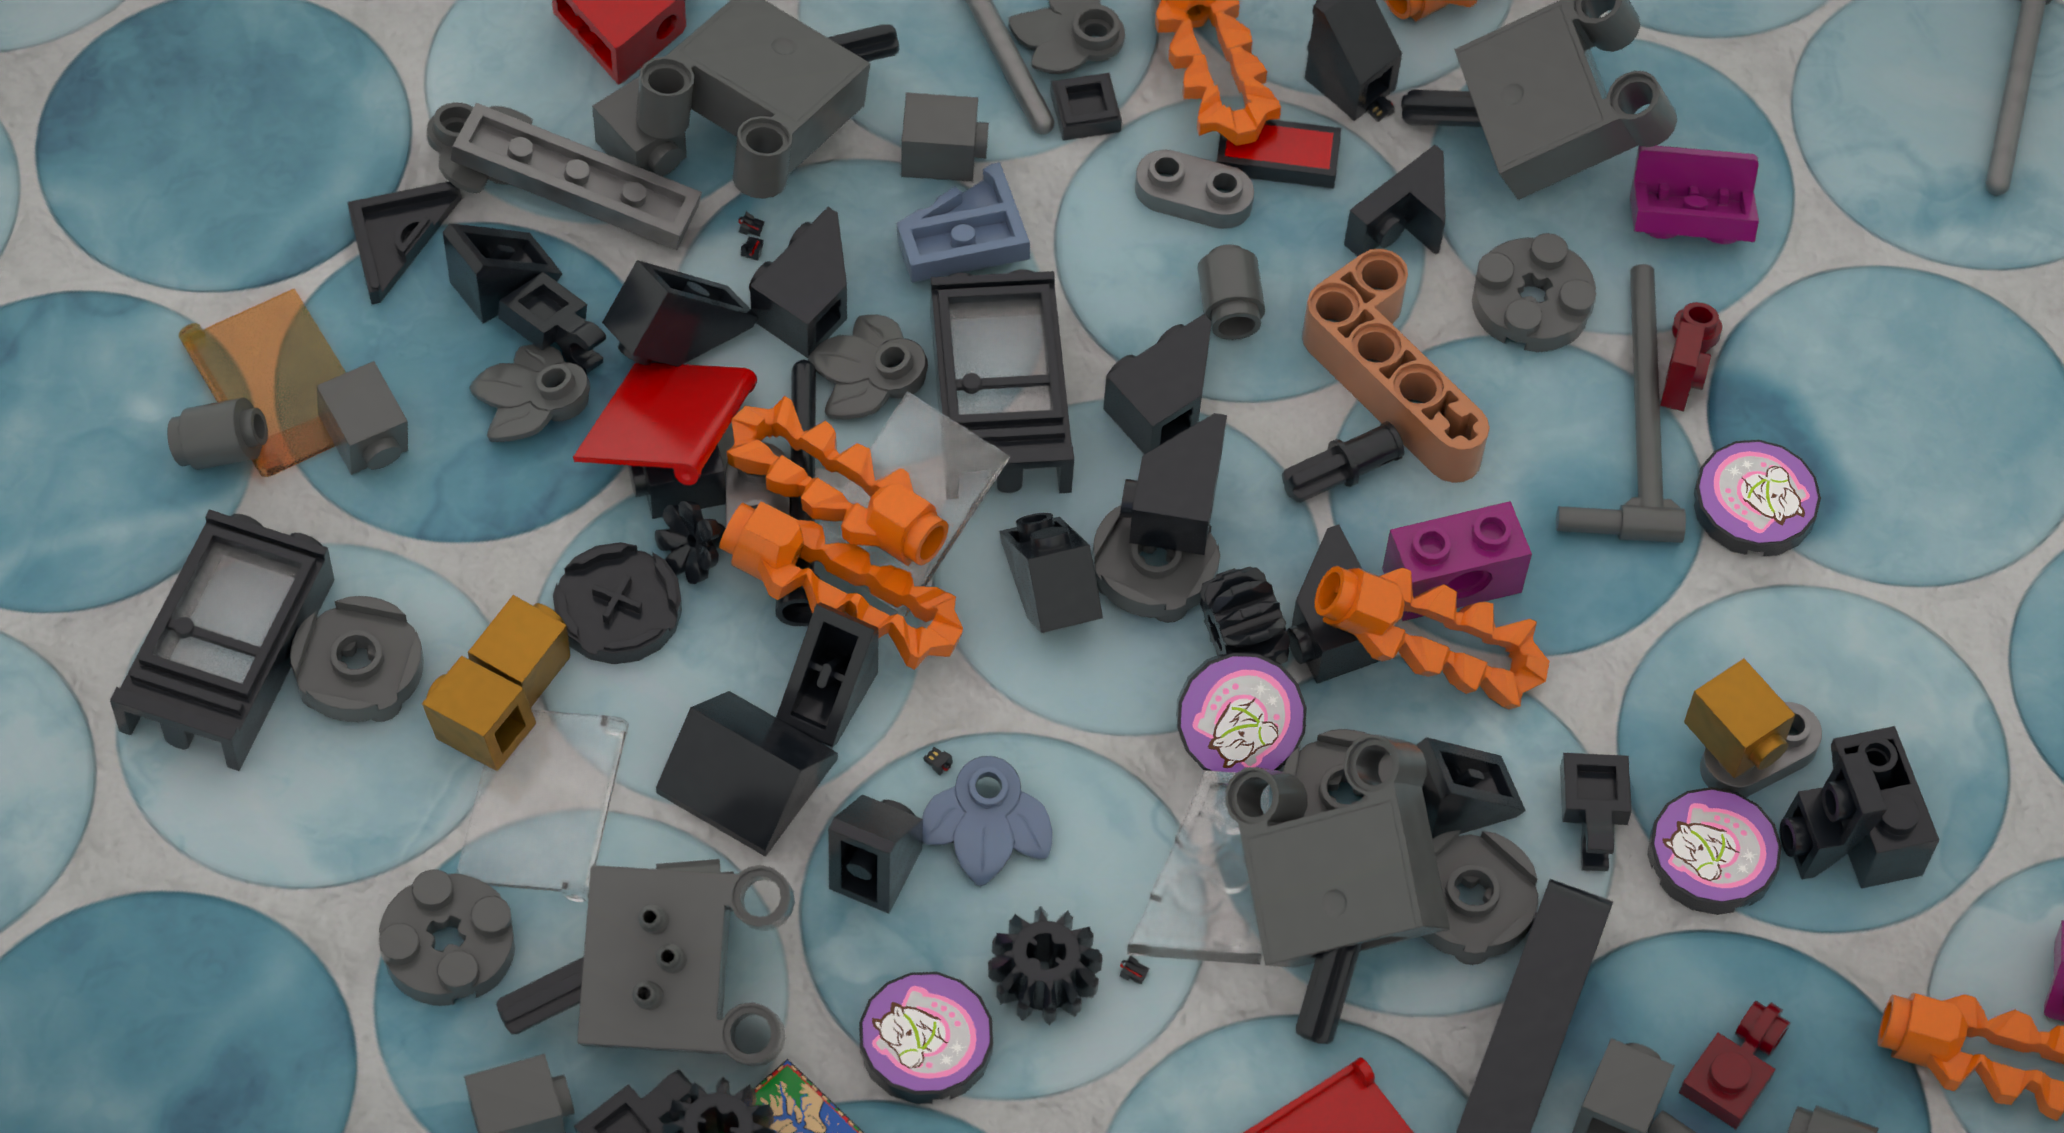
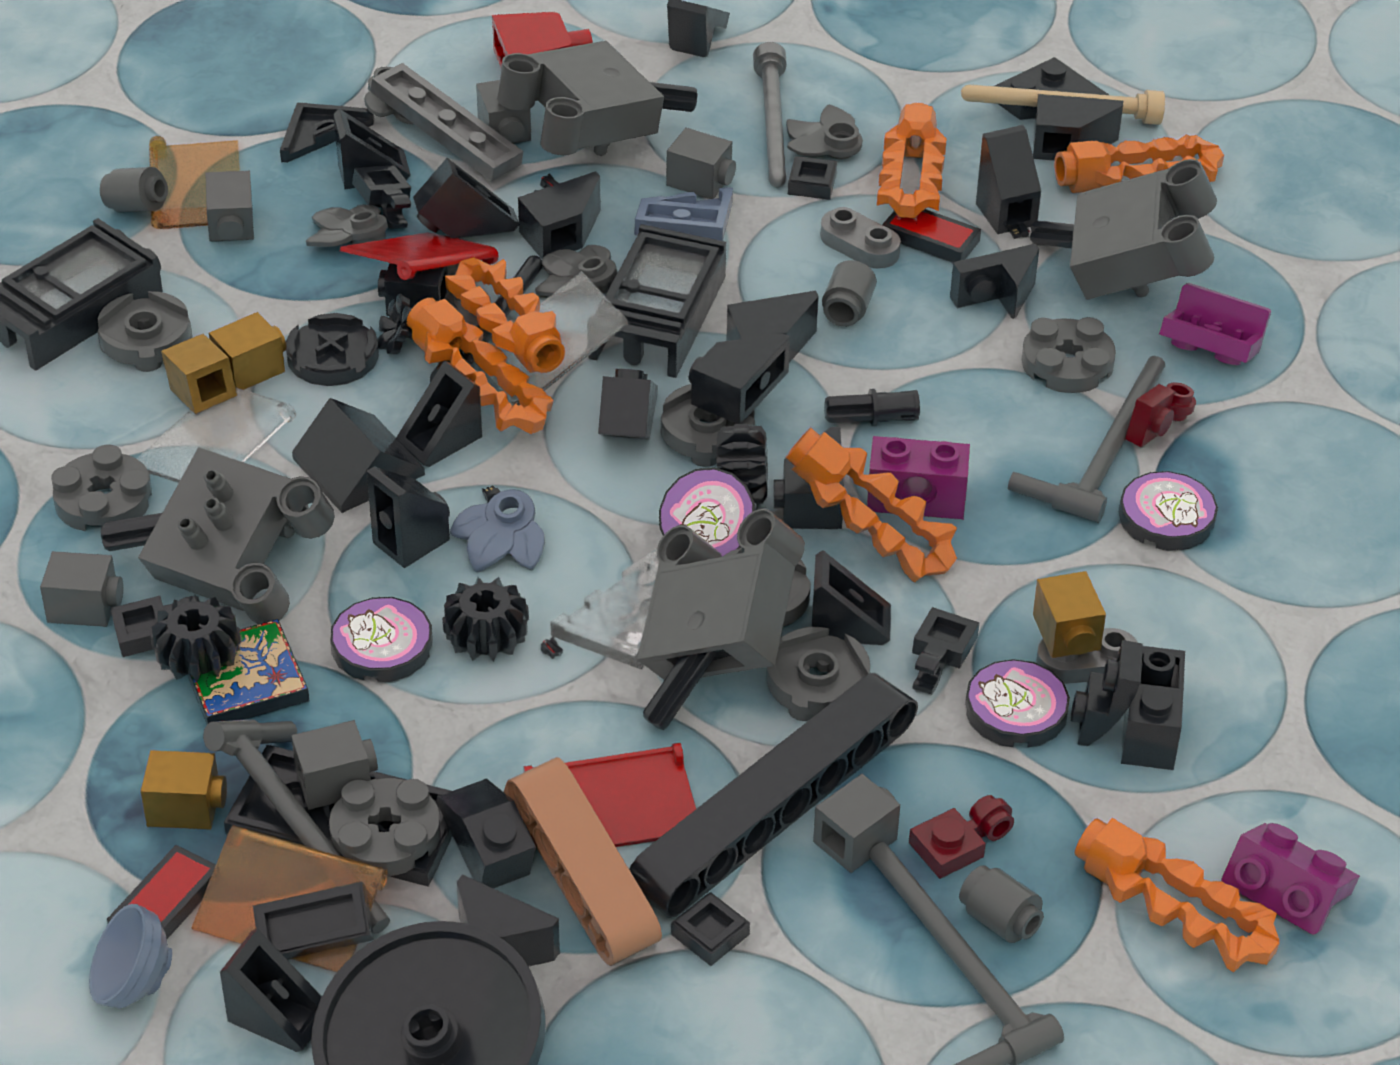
camera: 25 degrees right, 15 degrees down
(1444, 429) = (925, 342): nougat beam -> none

